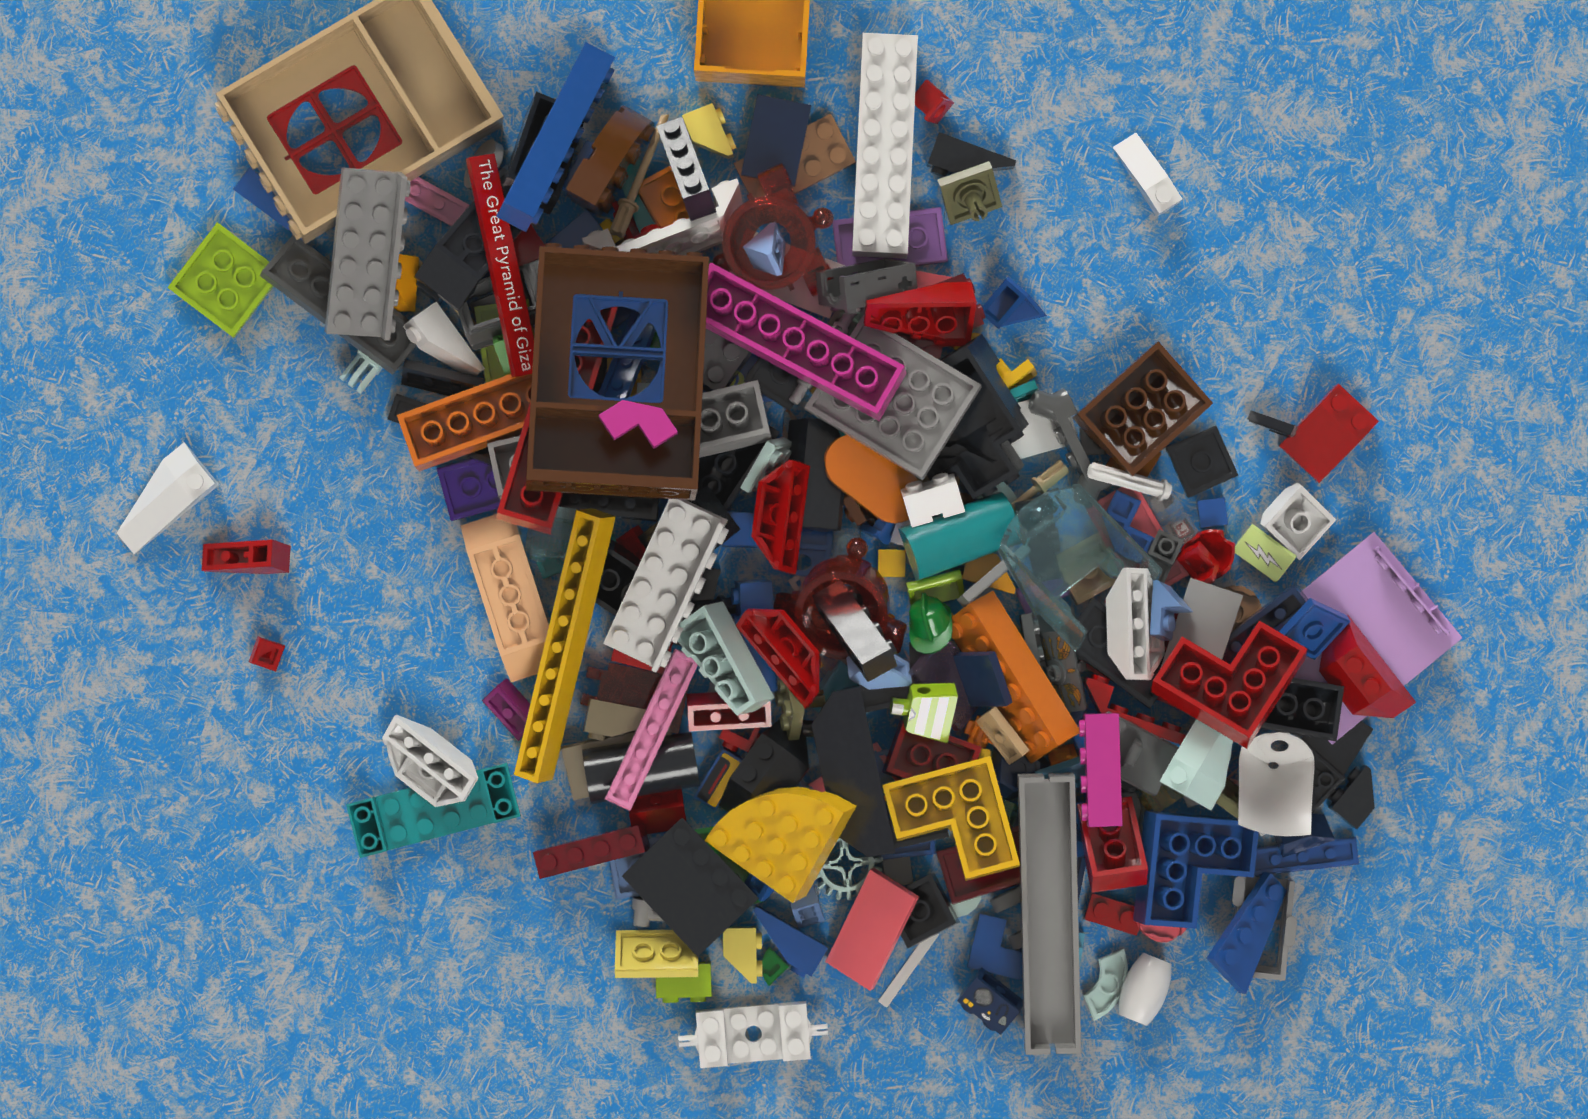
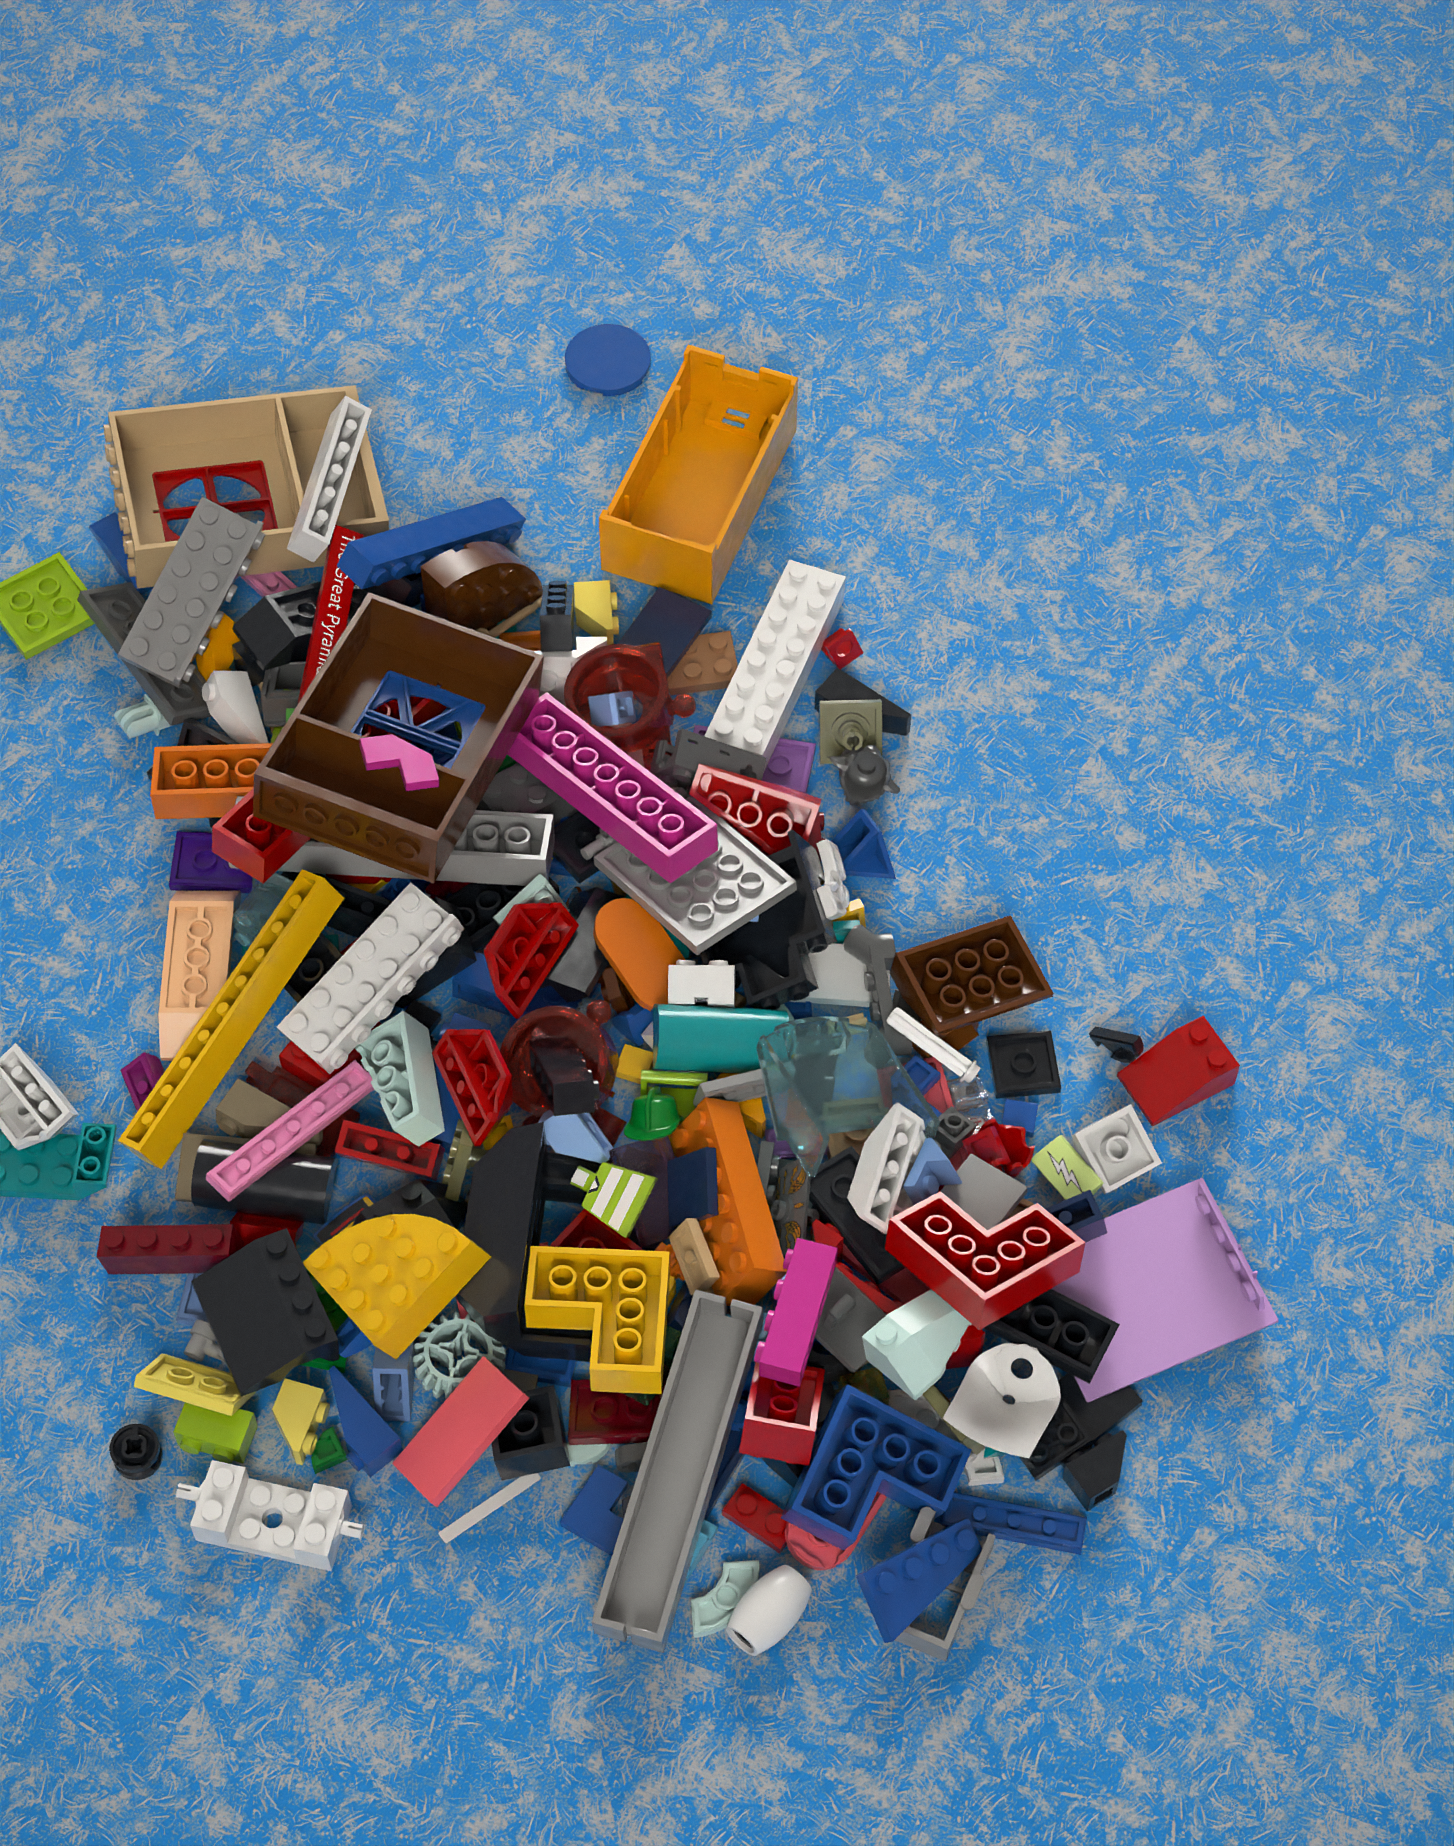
camera: 20 degrees right, 30 degrees down
(442, 104) = (329, 479): none -> white brick
(630, 1015) = (135, 1451): none -> black wheel
(734, 741) = (382, 1184): red bracket -> none
(990, 1001) = (572, 1565): dark blue brick -> none
(995, 233) = (864, 774): none -> dark grey hair
(1009, 364) = (833, 894): none -> white tile
(1147, 175) = (1051, 778): white slope -> none
(1315, 626) = (1108, 1248): blue tile -> none
(1319, 835) = (1019, 1485): dark blue slope -> none
(1366, 678) = (1149, 1335): red wedge -> none

